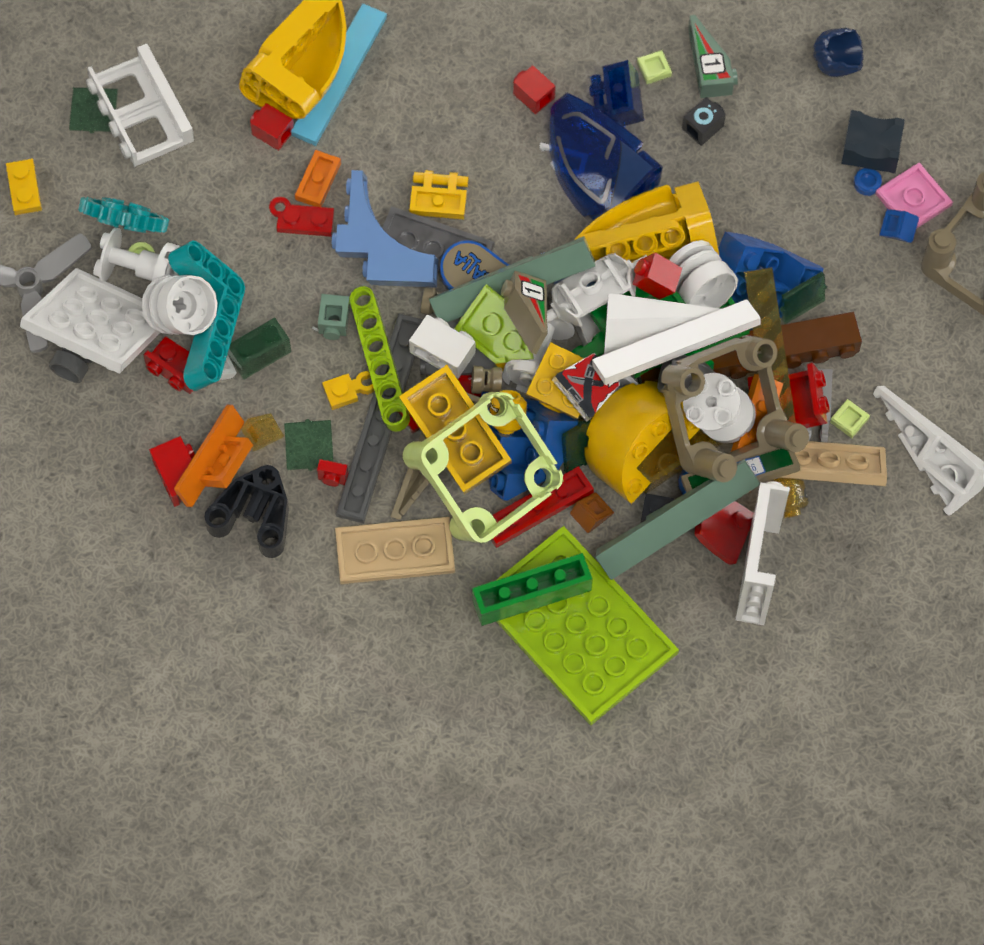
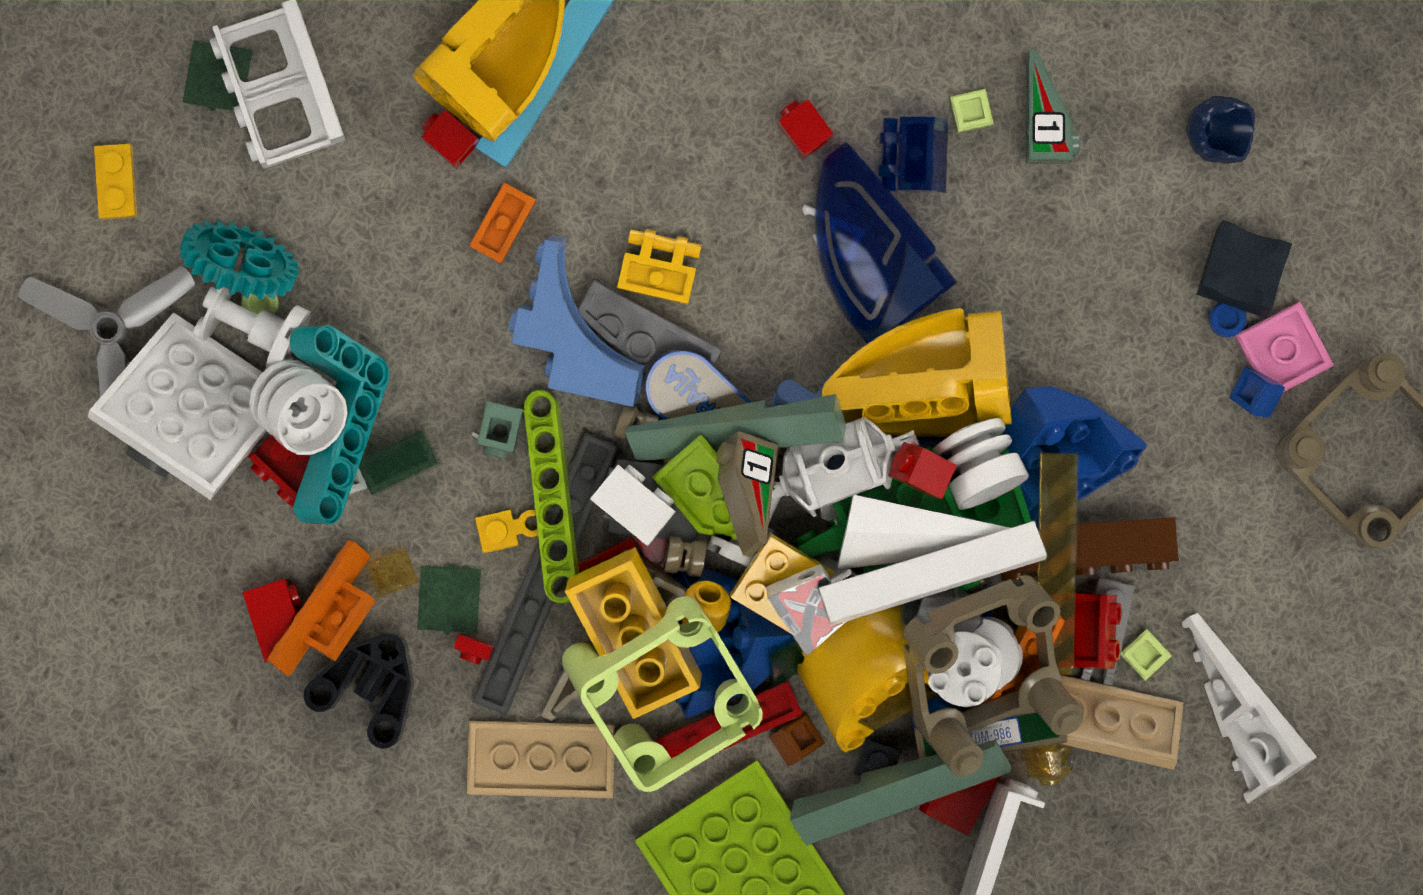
camera: 10 degrees right, 20 degrees up
(302, 219) = (475, 276): red hinge -> none
(532, 589) = (703, 854): green brick -> none
(704, 121) = (1025, 204): black brick -> none
(803, 297) = (1113, 486): clear green piece -> none

